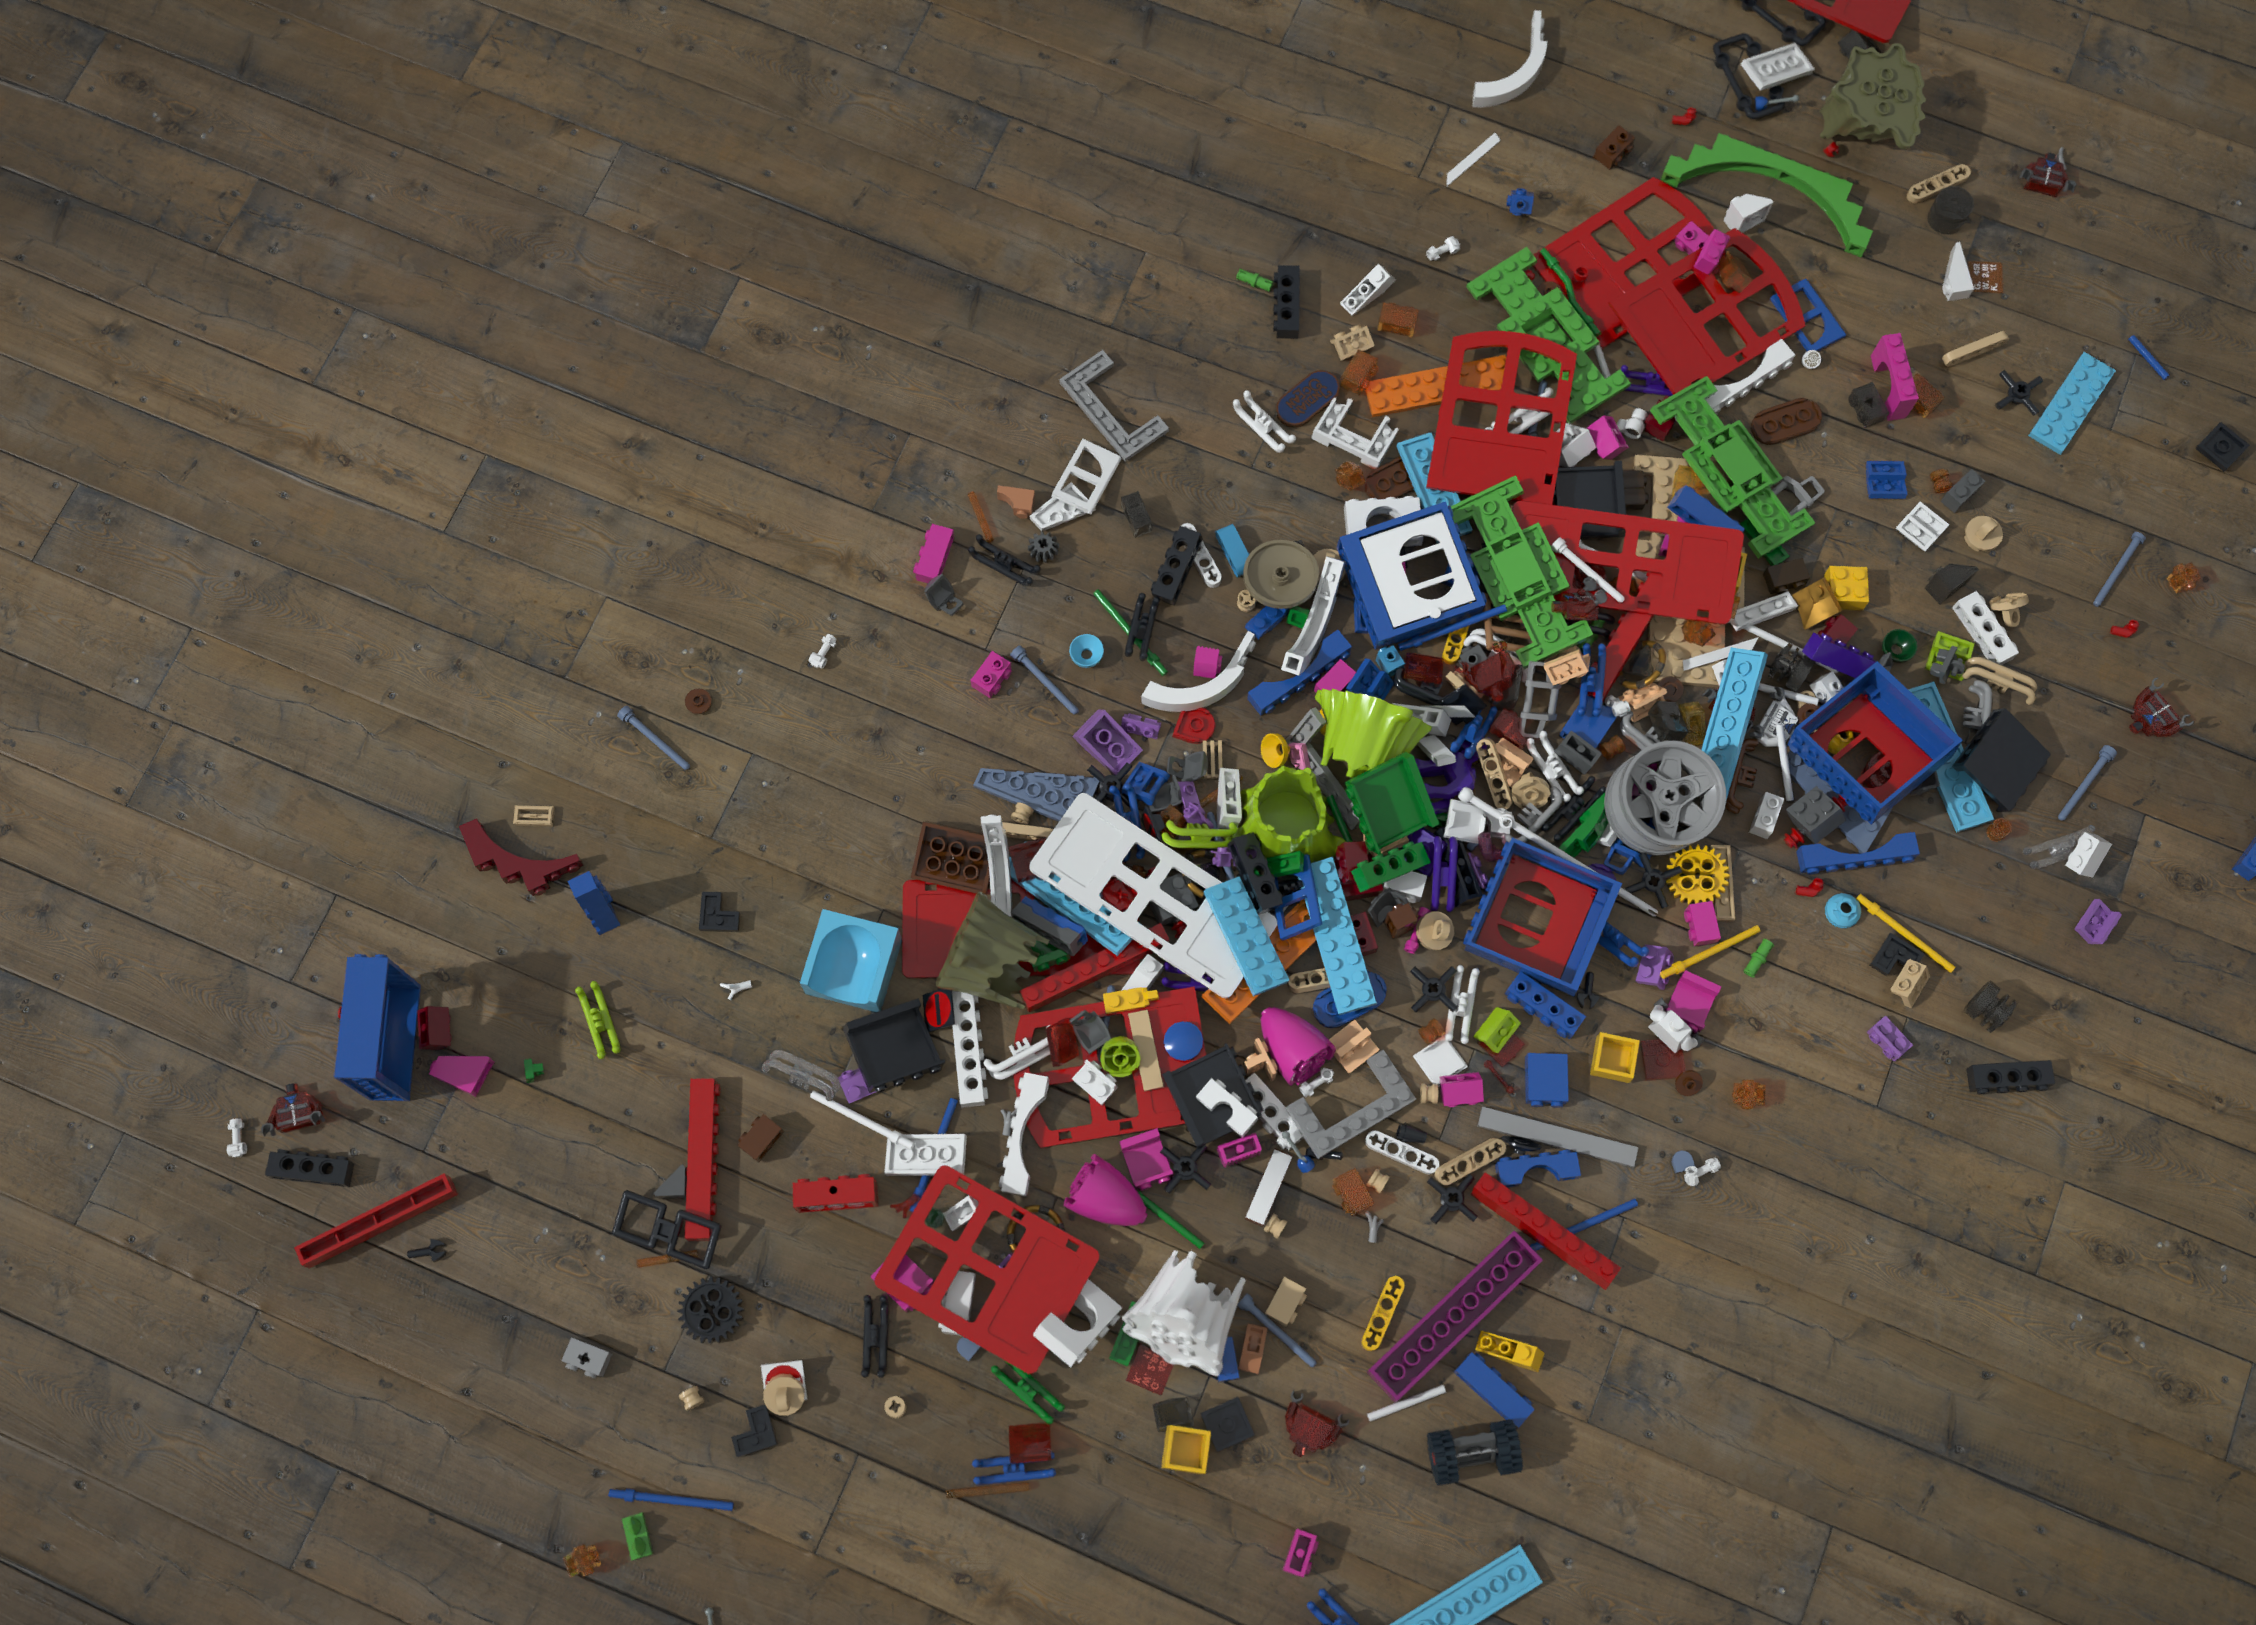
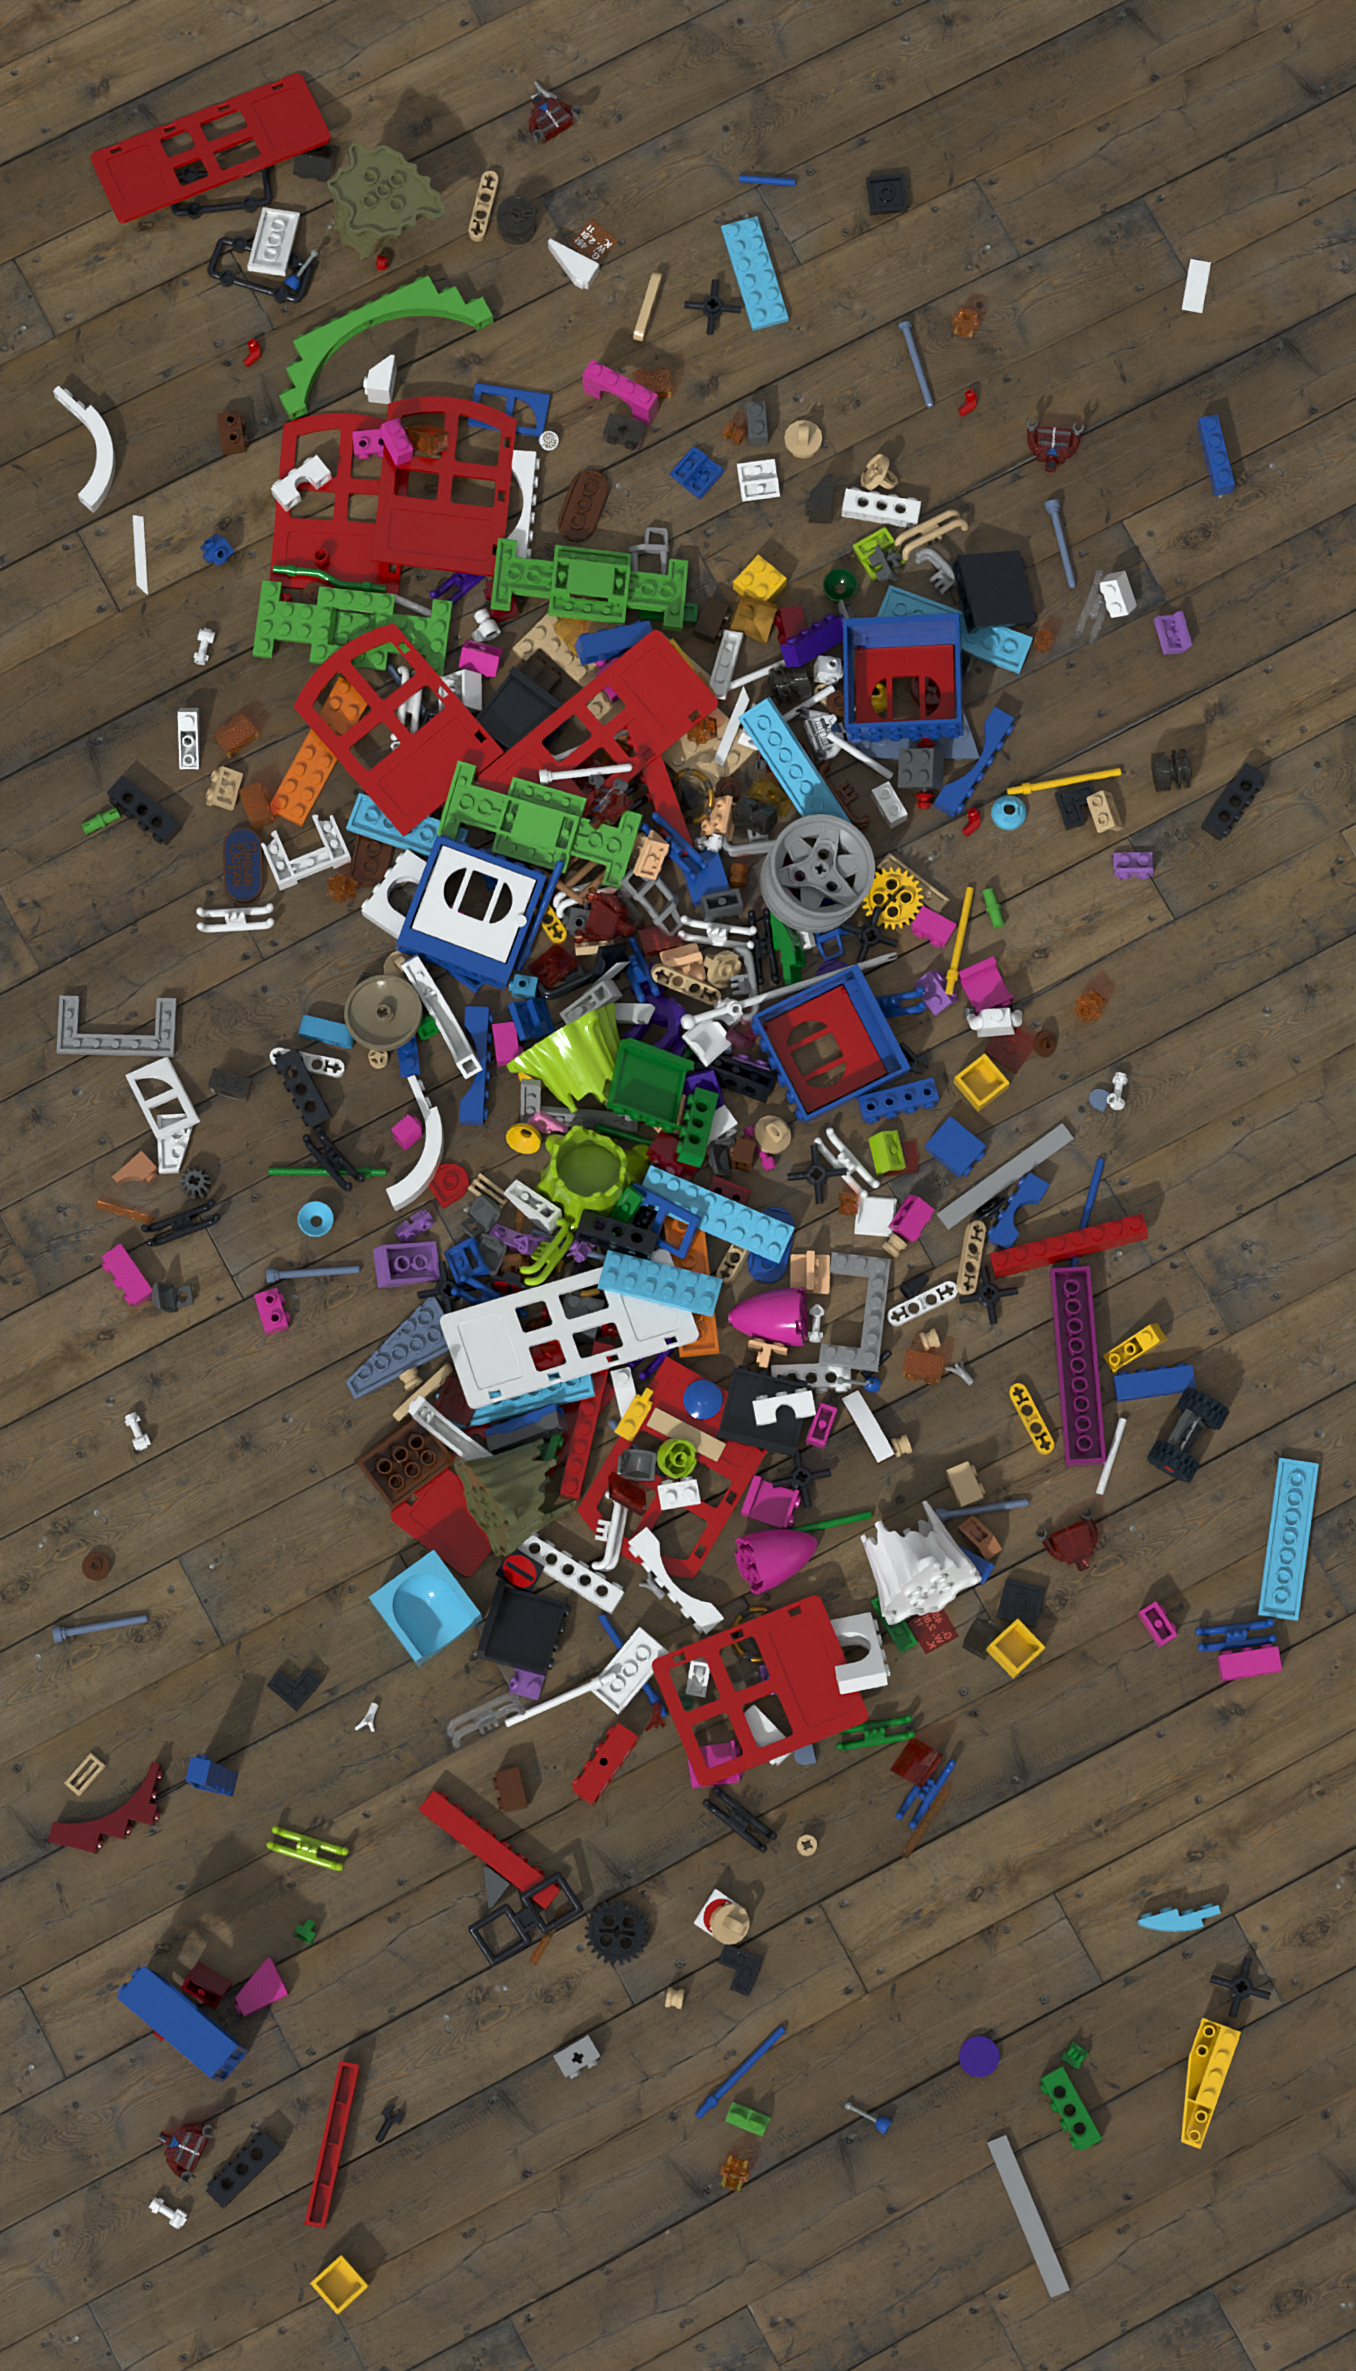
camera: 50 degrees left, 5 degrees up
(268, 1313) = (339, 2284): none -> yellow piece
(1443, 874) = (735, 1091): dark purple piece -> none
(1488, 1064) = (907, 1182): clear red hinge -> none
(1635, 218) = (311, 471): none -> white arch

